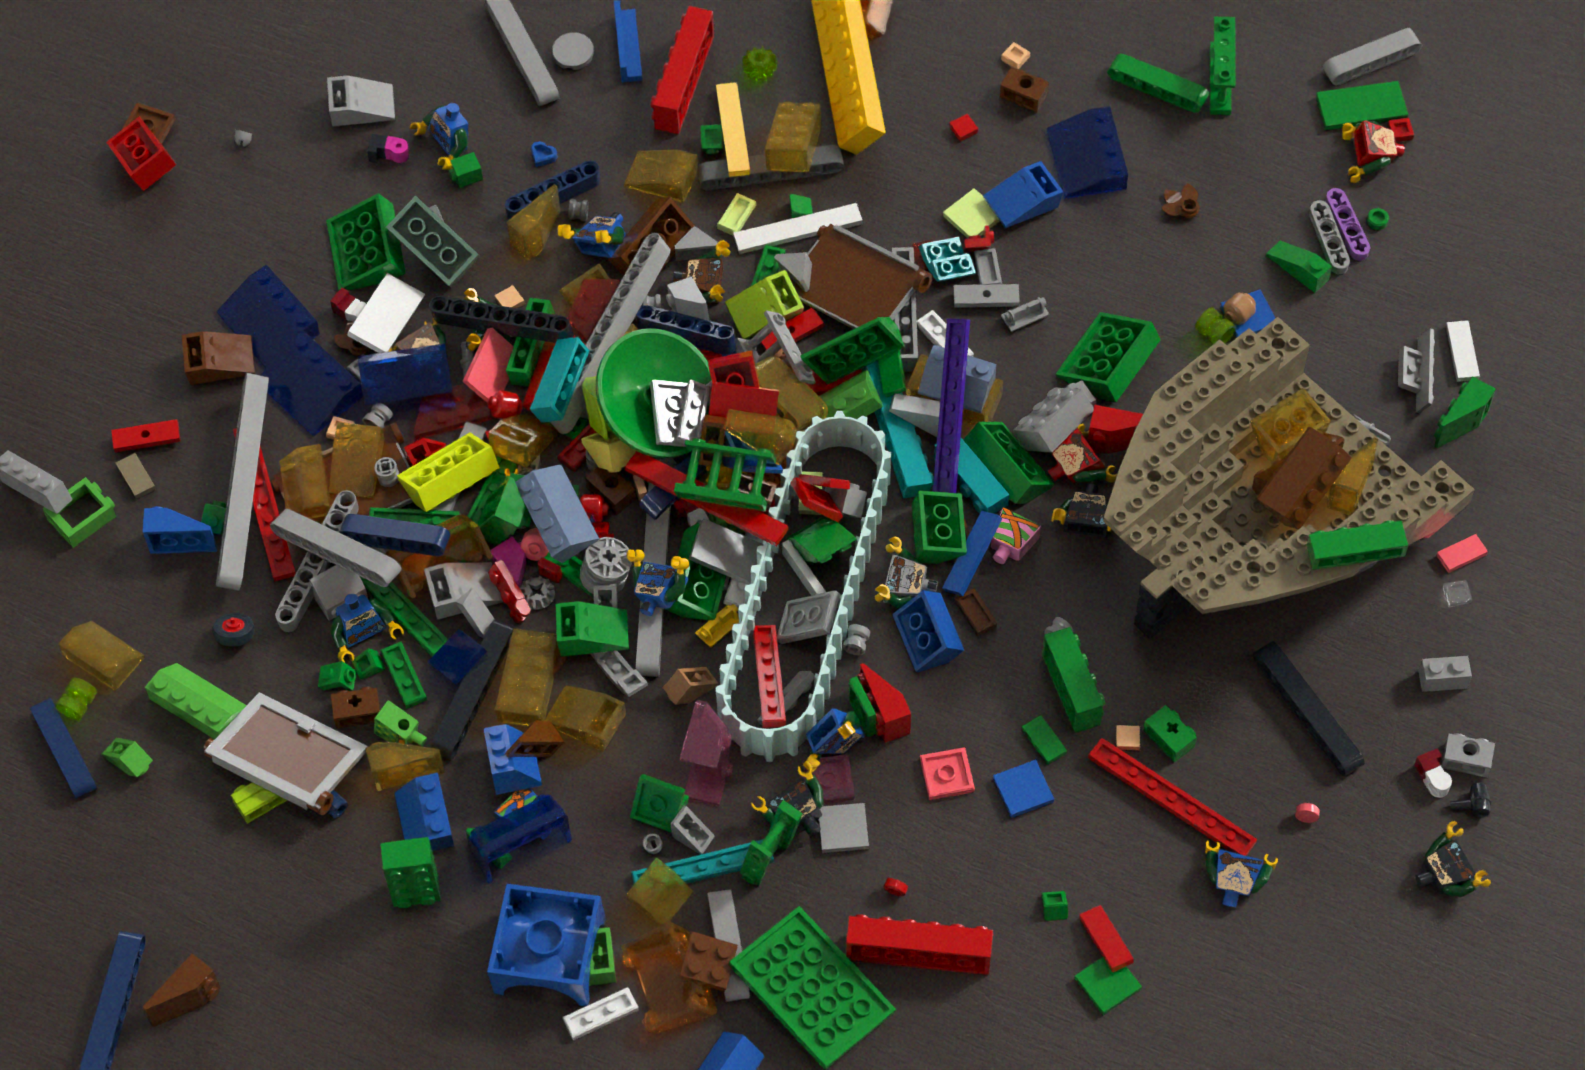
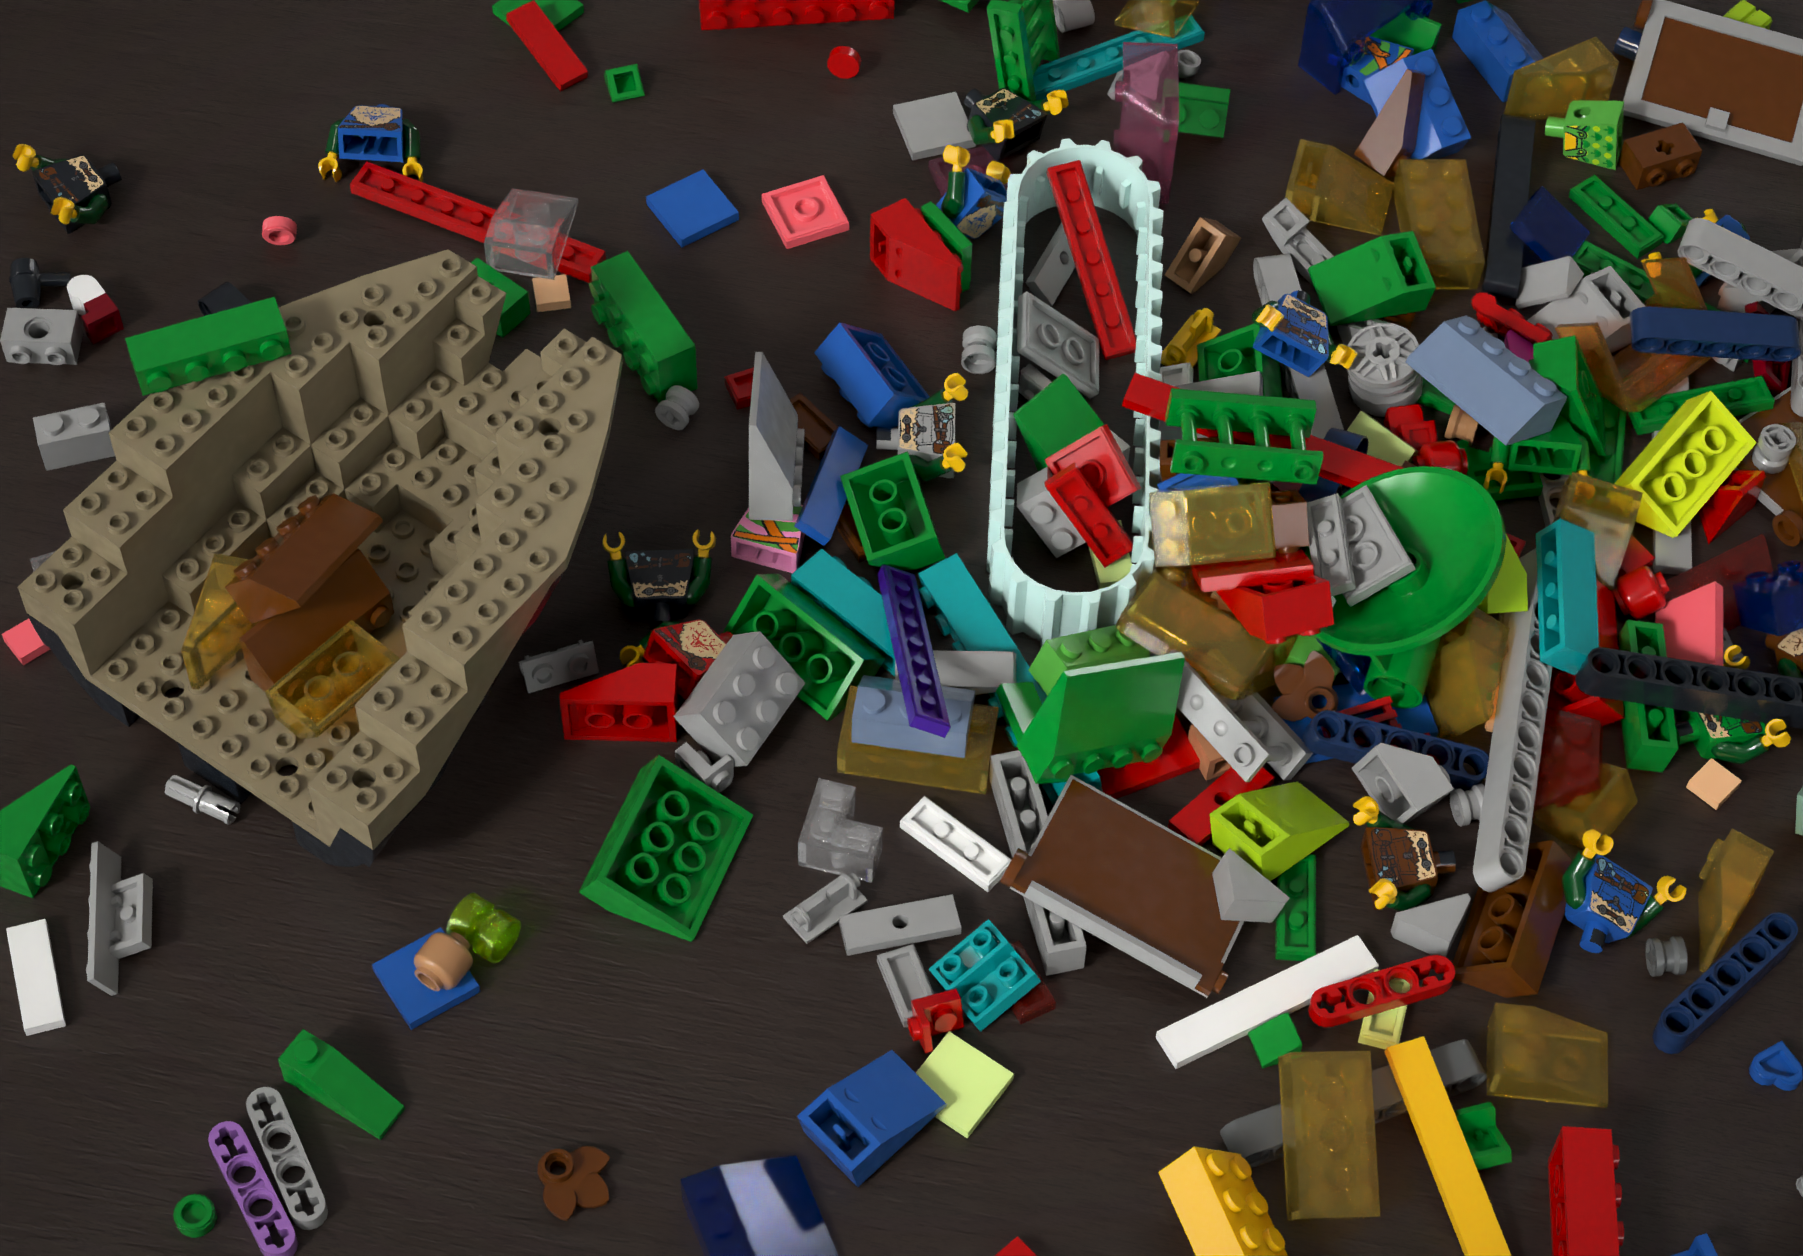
camera: 165 degrees right, 5 degrees down
(337, 675) = (1706, 189): green bracket -> none
(623, 529) = (1382, 442): none -> yellowish green tile
(737, 211) = (1379, 986): none -> red beam
(1007, 560) = (774, 448): none -> light grey slope
(1010, 646) = (740, 387): none -> red tile
(1013, 343) = (833, 840): none -> clear brick
(1044, 740) = (673, 272): green tile -> none
(1137, 768) = (529, 233): none -> clear slope

